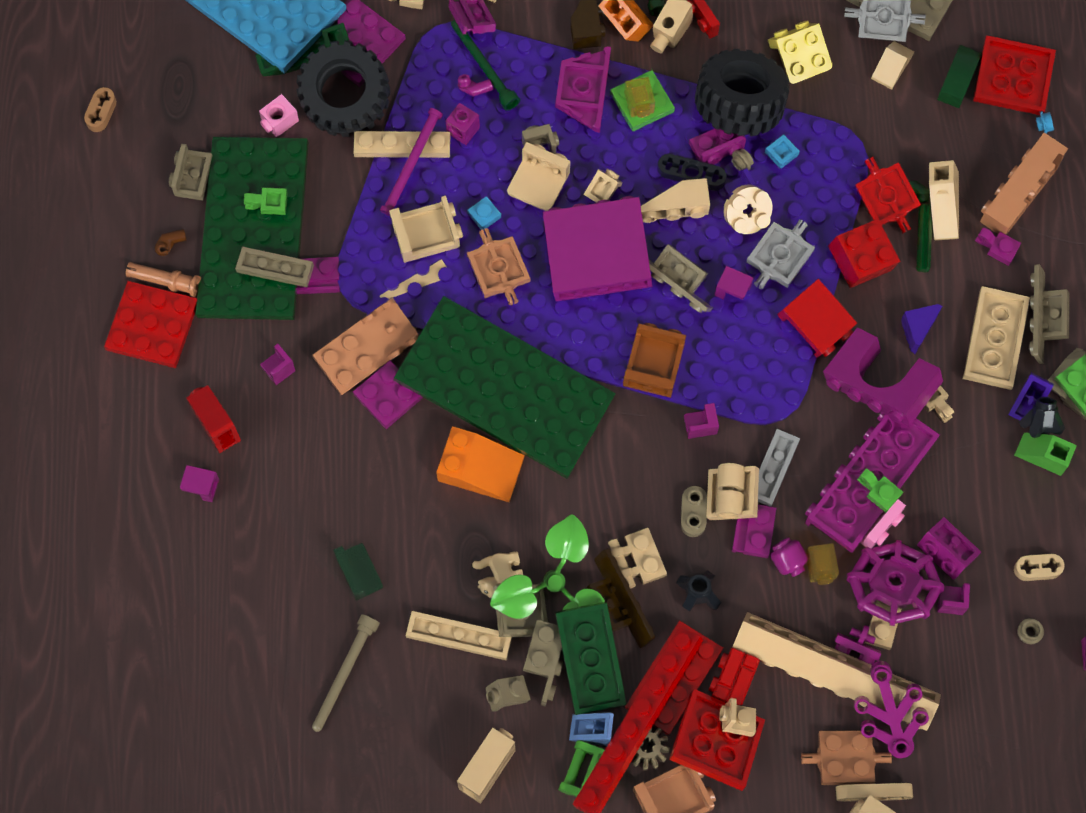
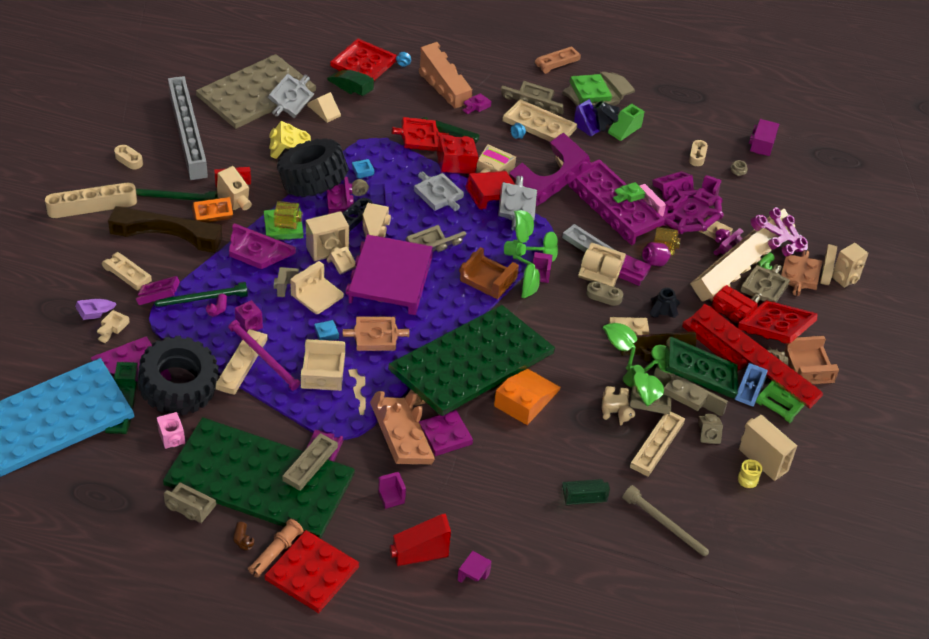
camera: 75 degrees left, 25 degrees down
(104, 111) = (84, 558): medium nougat beam -> none
(271, 201) = (250, 447): bright green plate -> none
(451, 757) = (749, 473): none -> light yellow wheel
(625, 154) = (325, 234): none -> tan brick
(711, 374) = (516, 248): none -> bright green plant
(733, 283) = (448, 217): magenta panel -> none
(738, 718) = (766, 305): tan bracket -> none
(759, 216) = (401, 192): plate -> none
(794, 713) = (765, 284): none -> dark tan plate
(796, 355) = (516, 198): none -> light grey plate
(839, 705) = (765, 261): none -> bright green arm
(873, 305) = (495, 160): none -> tan torso
(918, 323) = (520, 149): dark purple slope -> none
(944, 199) = (428, 106): tan slope -> none
(964, 315) = (518, 130): none -> dark azure plate

